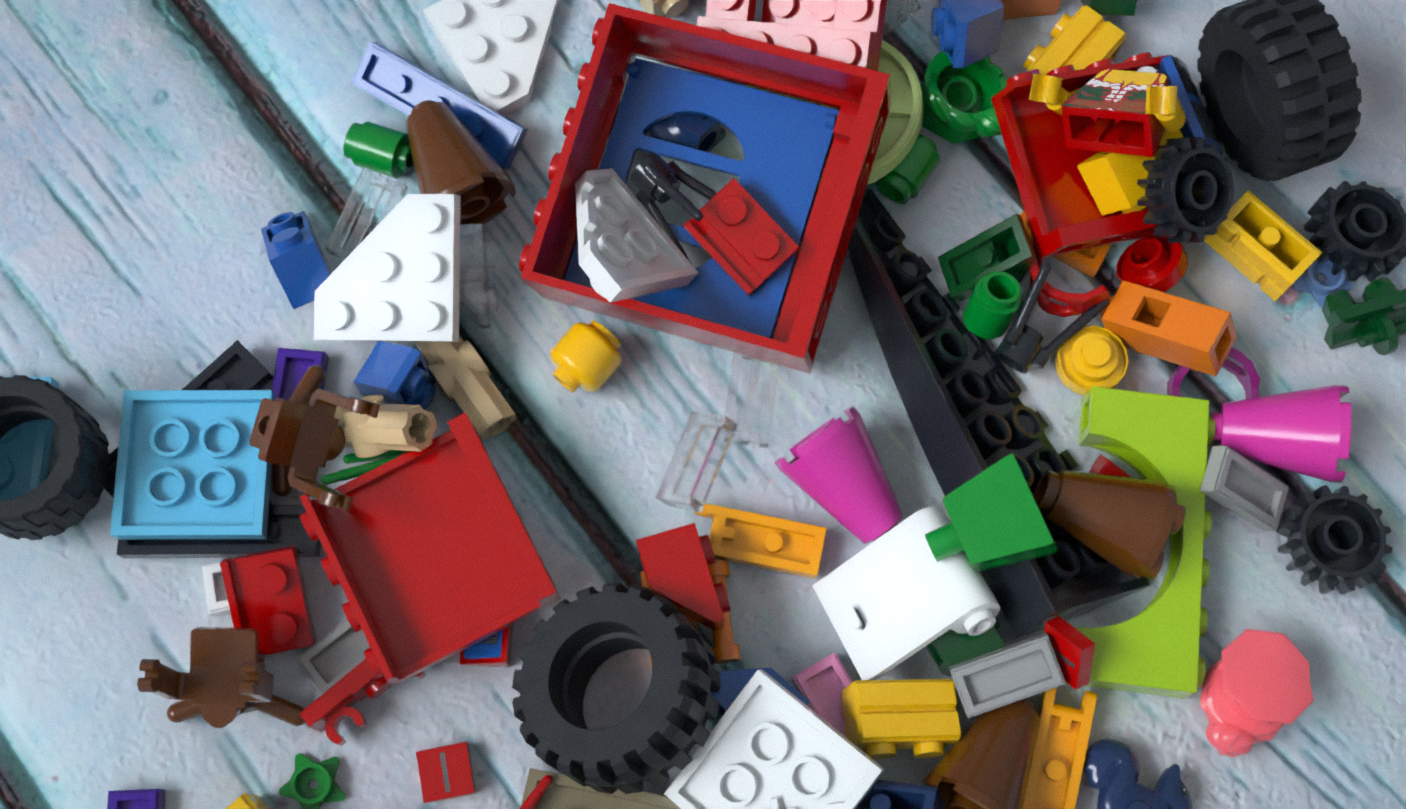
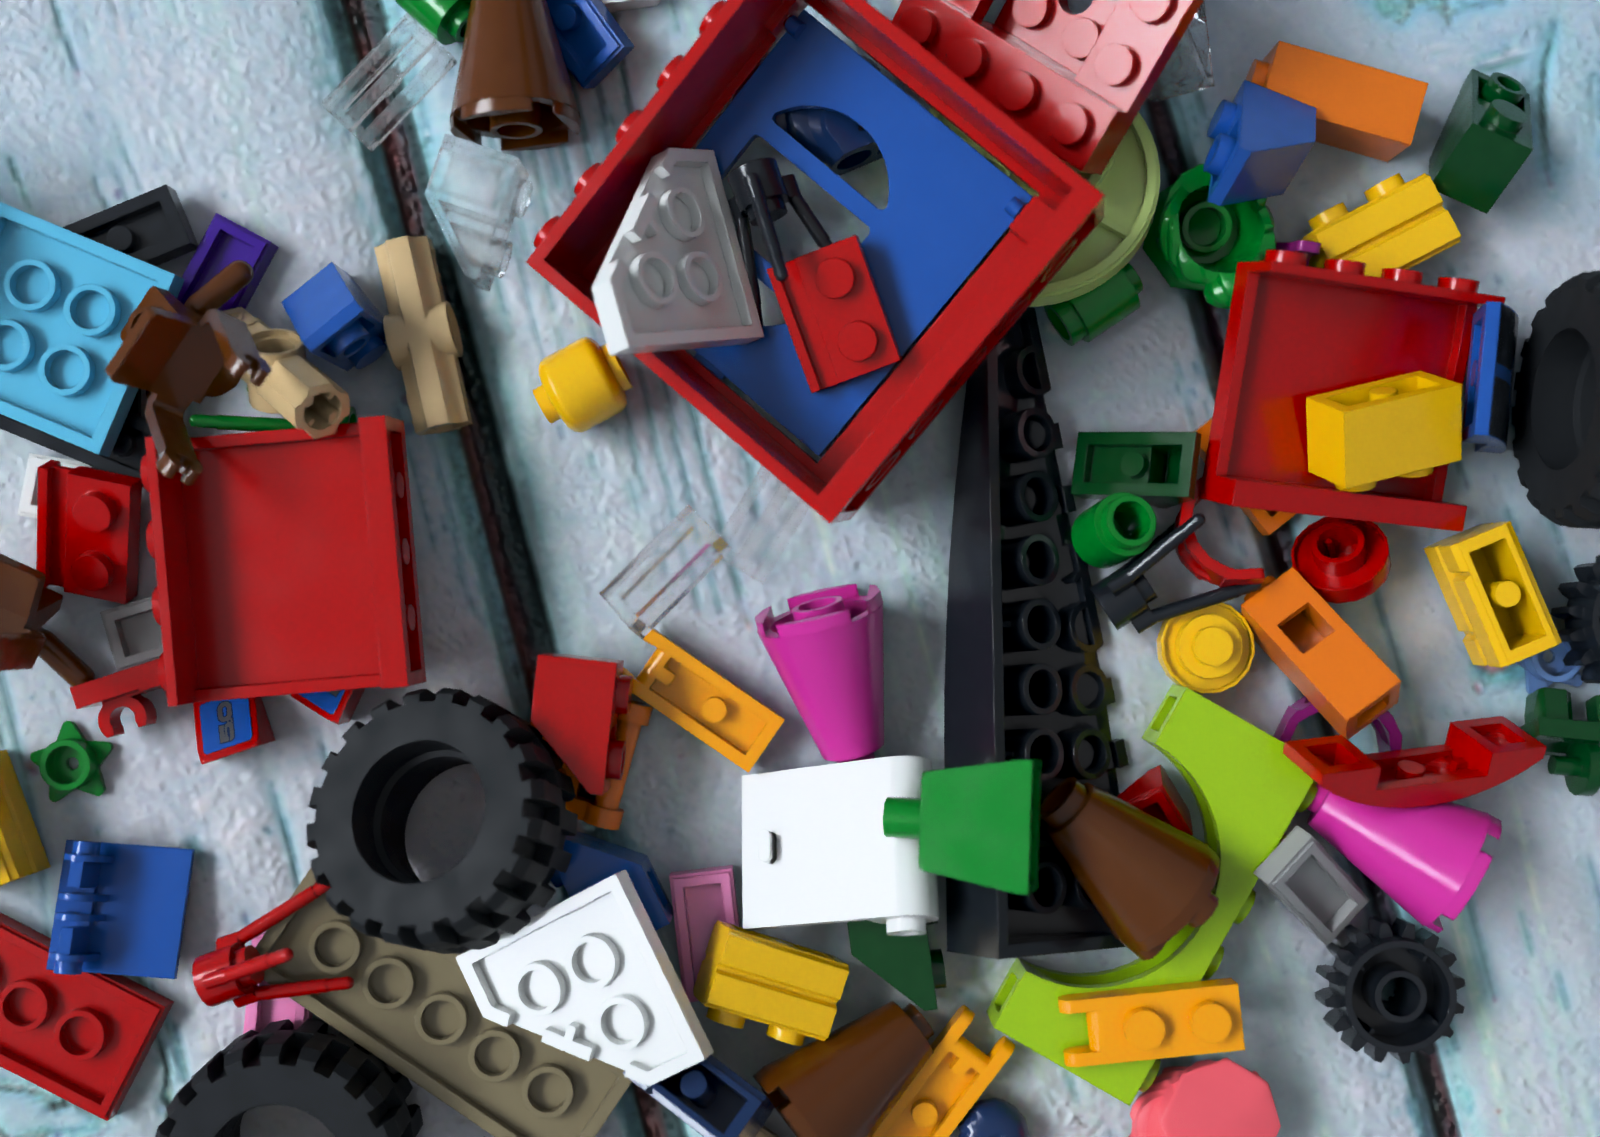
camera: 25 degrees right, 15 degrees up
(295, 256) = (278, 106): blue slope -> none
(398, 278) = (382, 192): white plate -> none
(424, 702) = (230, 727): none -> slope
(446, 772) = (226, 815): red tile -> none
(1007, 675) = (912, 996): light grey tile -> none
(1071, 650) = (996, 1002): red tile -> none
(1114, 110) = (1388, 354): torso -> none
(1186, 190) = (1428, 496): black gear -> none
(1186, 620) = (1156, 1022): none -> light orange hinge
(1304, 356) = (1472, 760): none -> red slope

